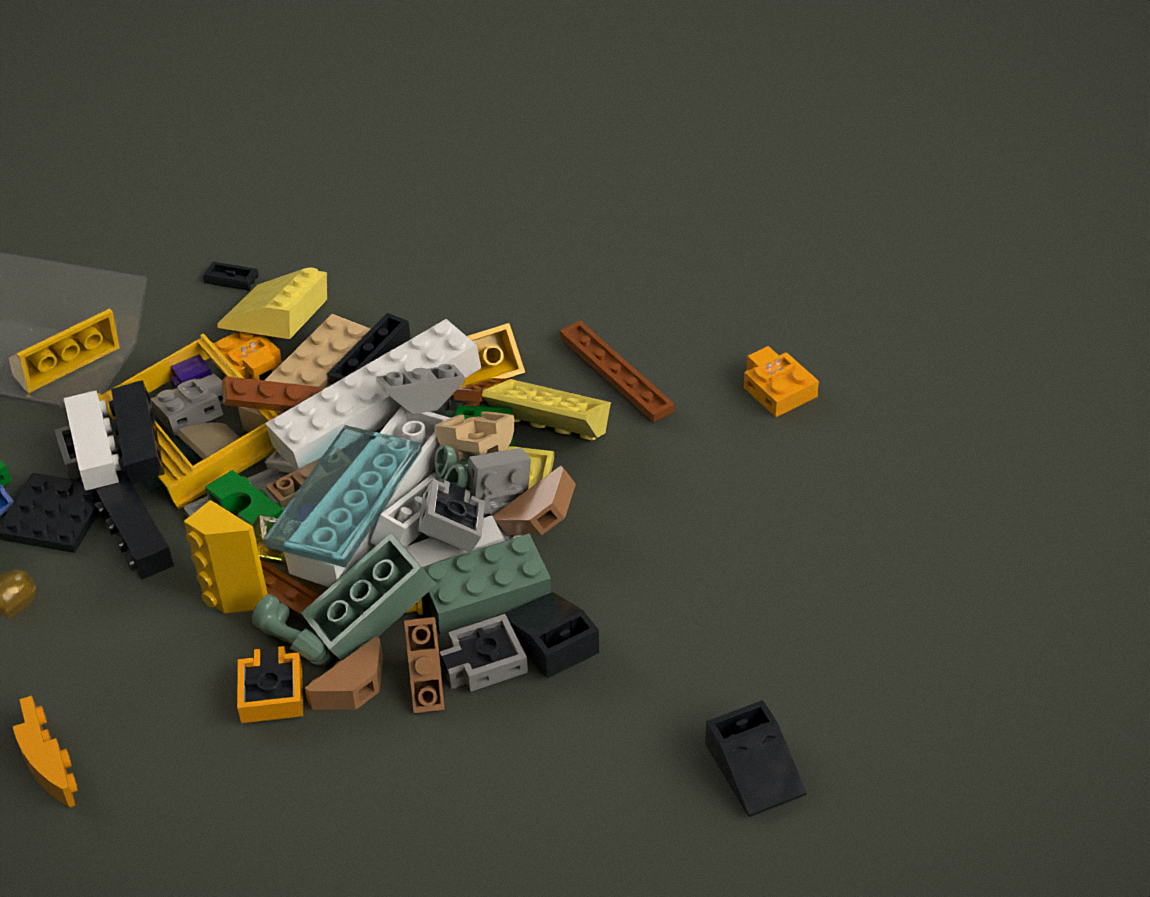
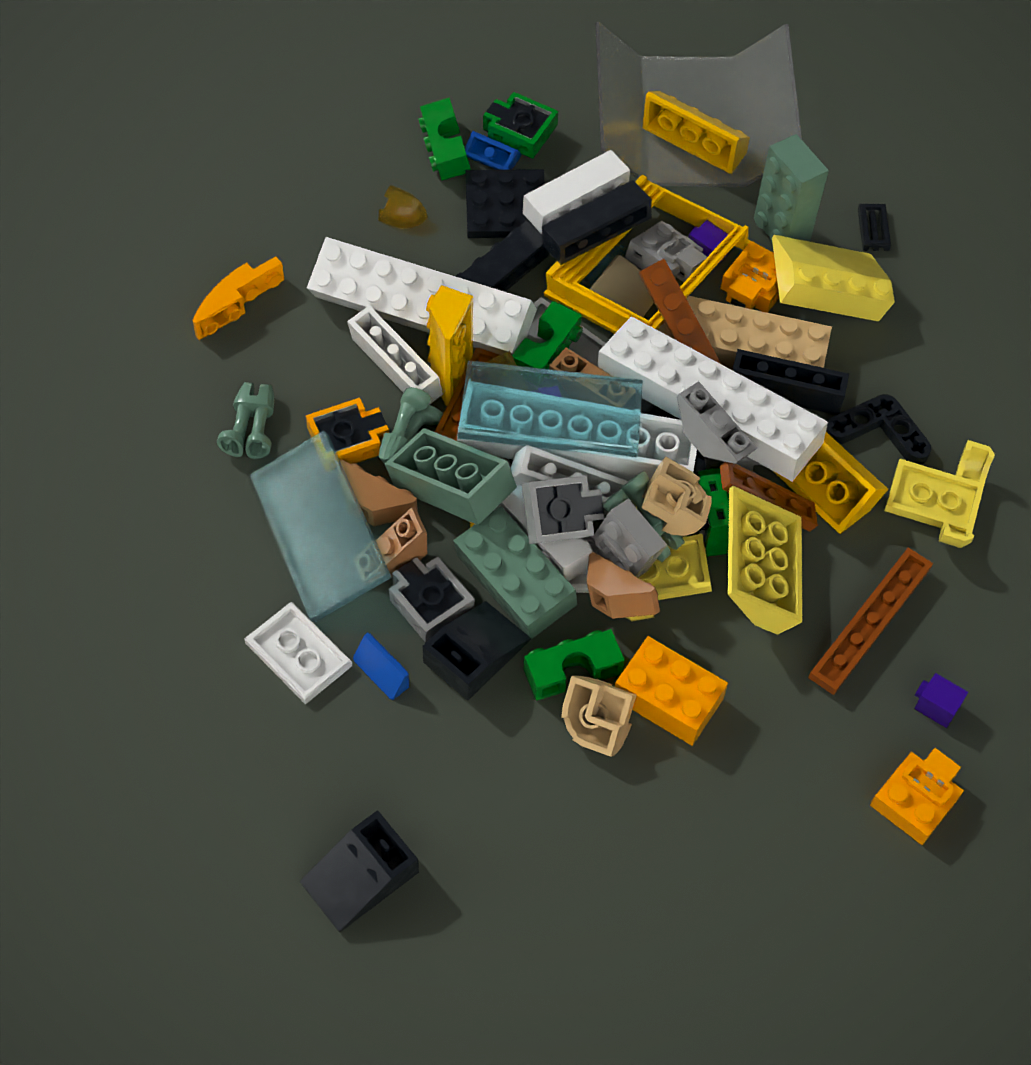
camera: 70 degrees right, 15 degrees up
(125, 600) = (402, 290): none -> white brick
(188, 293) = (790, 190): none -> sand green brick
(189, 764) = (248, 406): none -> sand green piece
(198, 625) = (393, 353): none -> white brick
(369, 724) = (320, 527): none -> clear light blue tile
(466, 306) = (886, 421): none -> black beam
(500, 777) = (298, 652): none -> white tile
(519, 298) = (941, 497): none -> light yellow piece
(543, 707) = (381, 667): none -> blue slope
(592, 583) = (595, 653): none -> green arch
(640, 505) = (672, 690): none -> light orange brick
(651, 554) = (597, 714): none -> tan brick
(702, 348) = (939, 699): none -> dark purple brick

